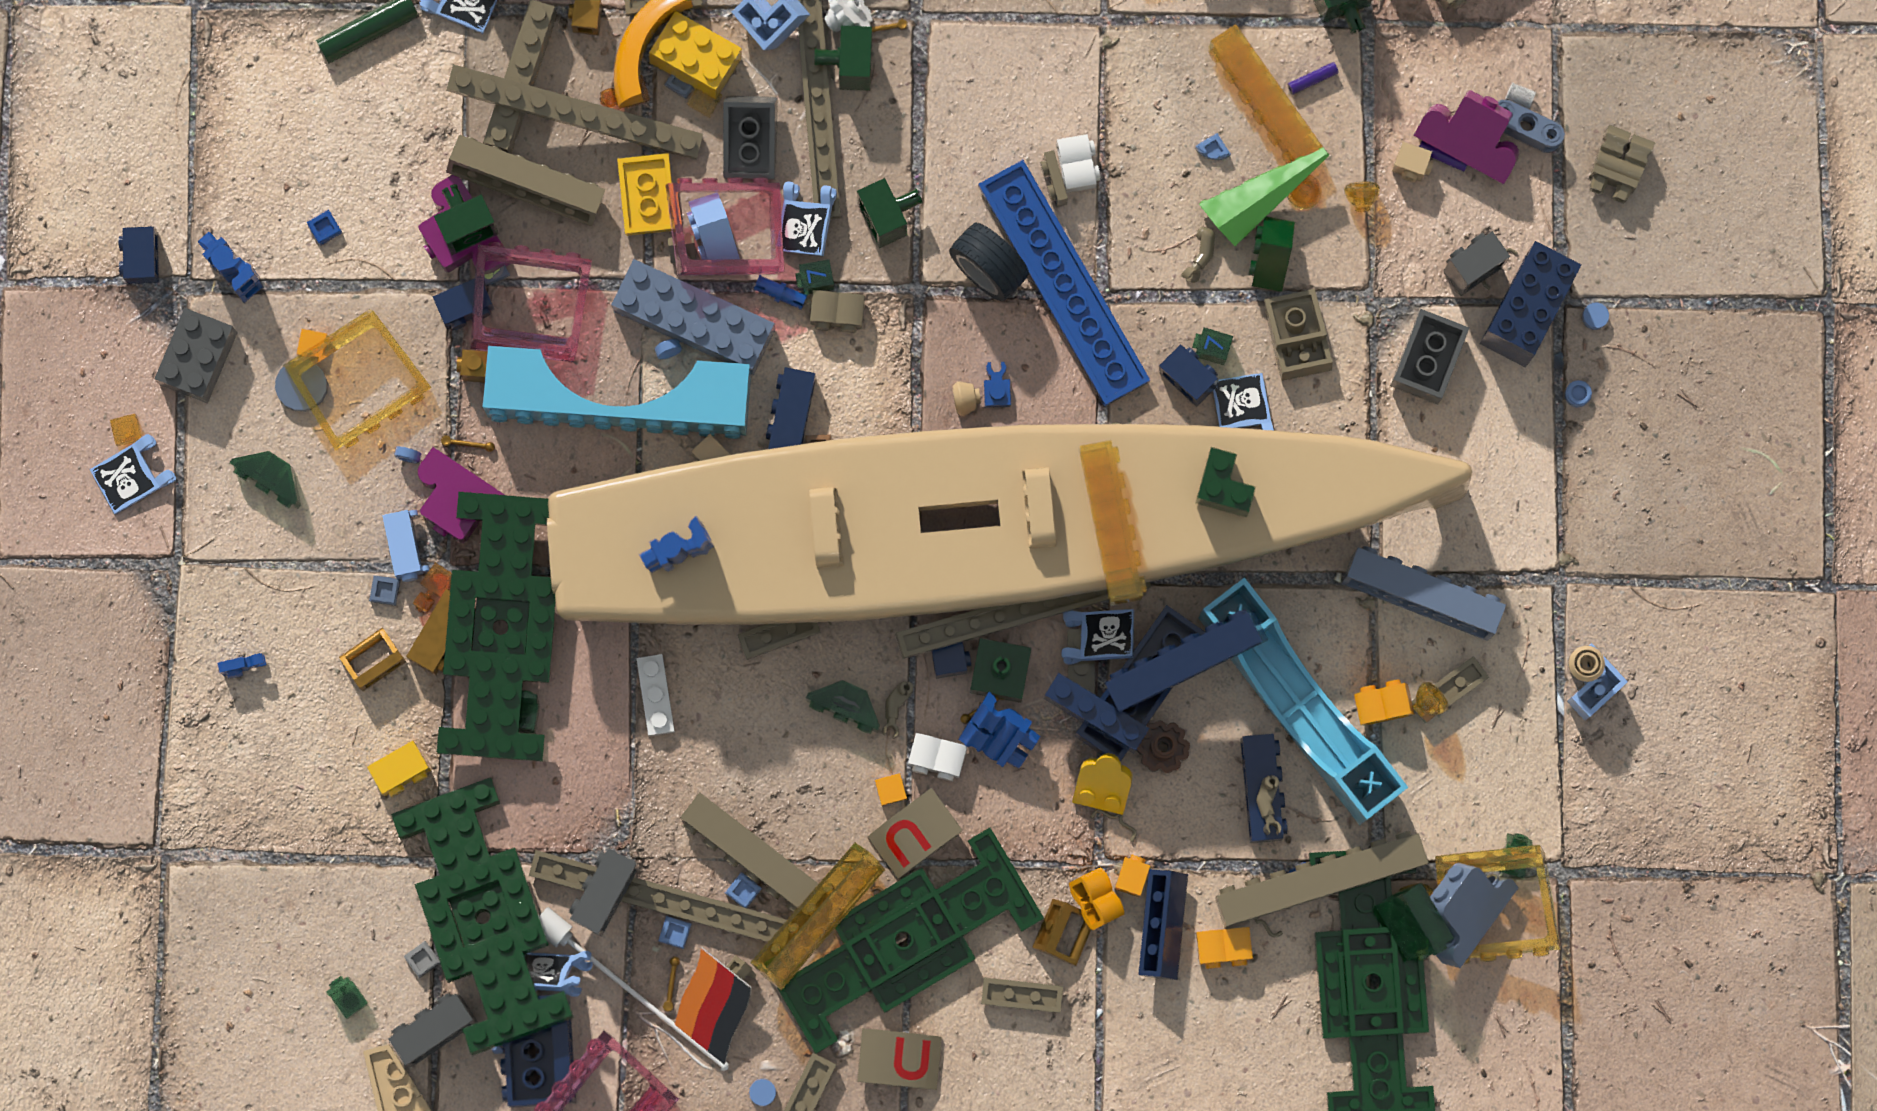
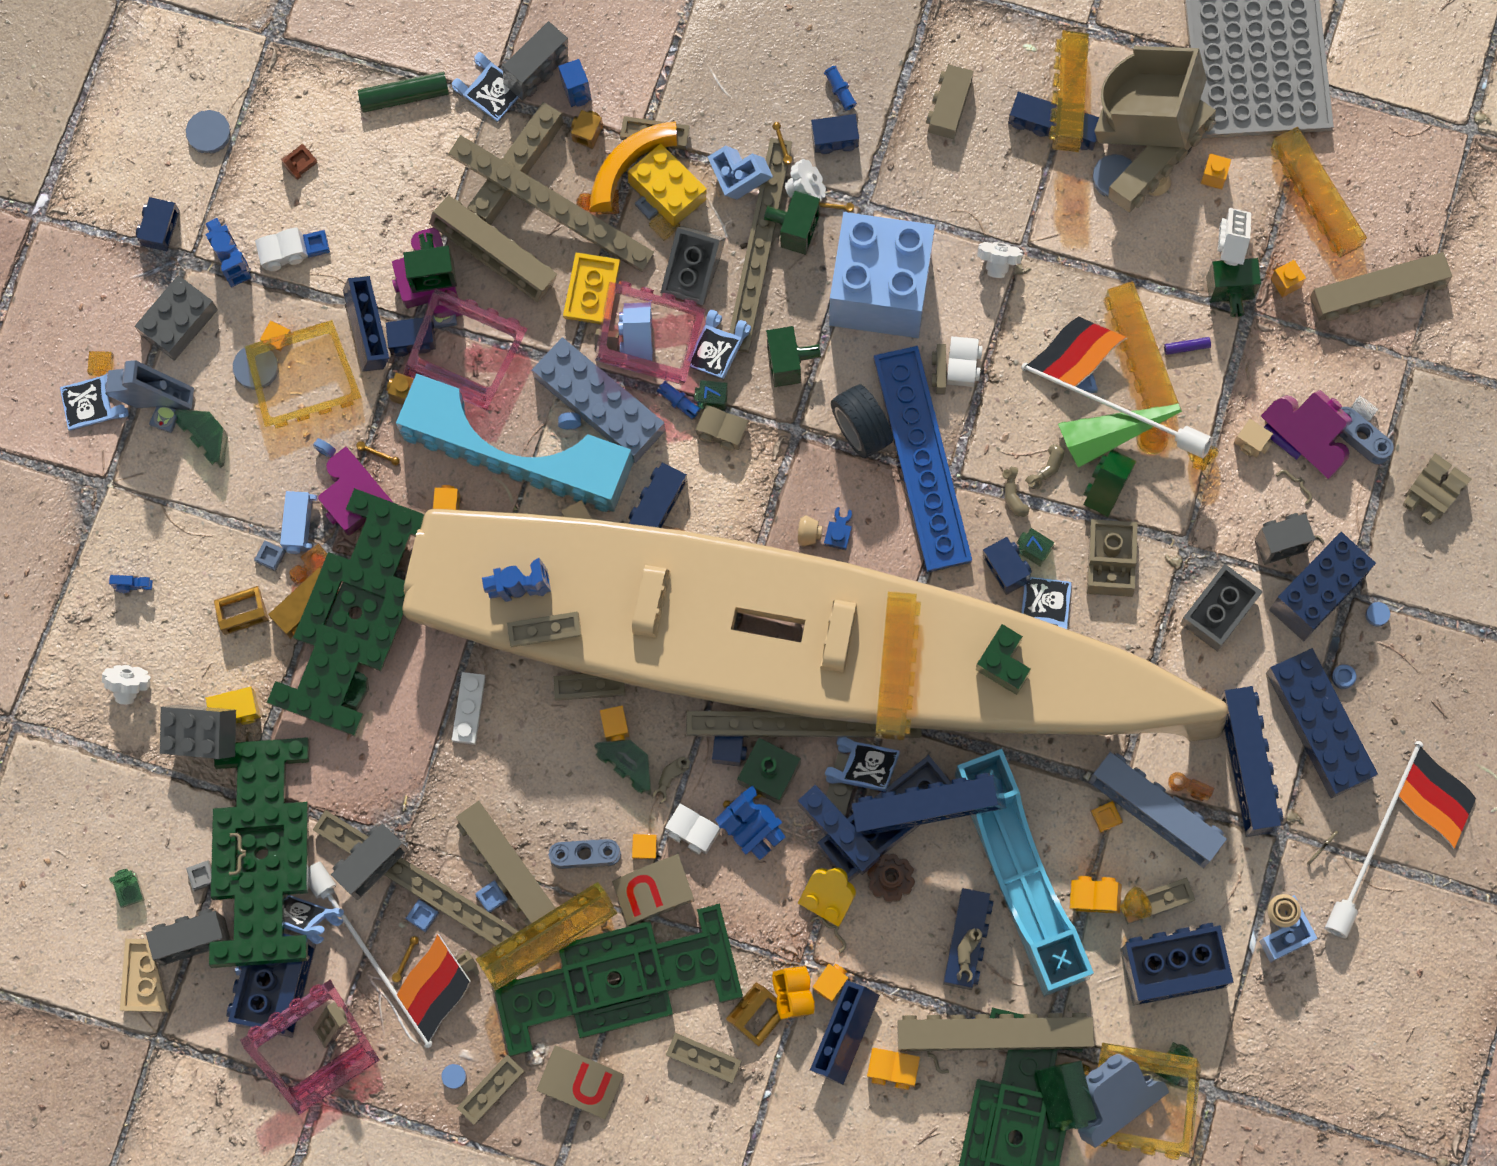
camera: 25 degrees right, 5 degrees down
(161, 133) = (208, 131): none -> sand blue tile
(192, 443) = (146, 387): none -> sand blue brick
(218, 471) = (163, 419): none -> tile
(273, 774) = (125, 682): none -> white plant
(275, 139) = (299, 161): none -> copper tile
(288, 245) = (281, 249): none -> white brick
(372, 806) = (197, 731): none -> dark grey brick
(410, 303) = (365, 323): none -> dark blue brick
(464, 927) = (241, 856): none -> dark tan piece
(560, 474) = (446, 498): none -> light orange brick
(616, 1077) = (330, 1024): none -> dark tan plate
(720, 590) = (544, 629): none -> dark tan plate
(819, 667) = (614, 723): none -> light orange brick
(840, 806) = (597, 859): none -> sand blue piece
(964, 94) = (881, 275): none -> light blue piece
(1083, 36) = (999, 257): none -> white plant
(1171, 299) = (1011, 497): none -> dark tan arm
(1197, 124) = (1078, 353): none -> flag
(1371, 615) = (1106, 817): none -> light orange tile
(1459, 559) = (1197, 789): none -> clear orange plate
(1475, 196) = (1297, 480): none -> dark tan piece
(1505, 758) = (1179, 980): none -> dark blue brick
(1507, 516) = (1250, 762): none -> dark blue brick
(1569, 451) = (1321, 723): none -> dark blue brick
(1606, 583) = (1322, 848): none -> dark tan piece
(1706, 497) = (1433, 798): none -> flag

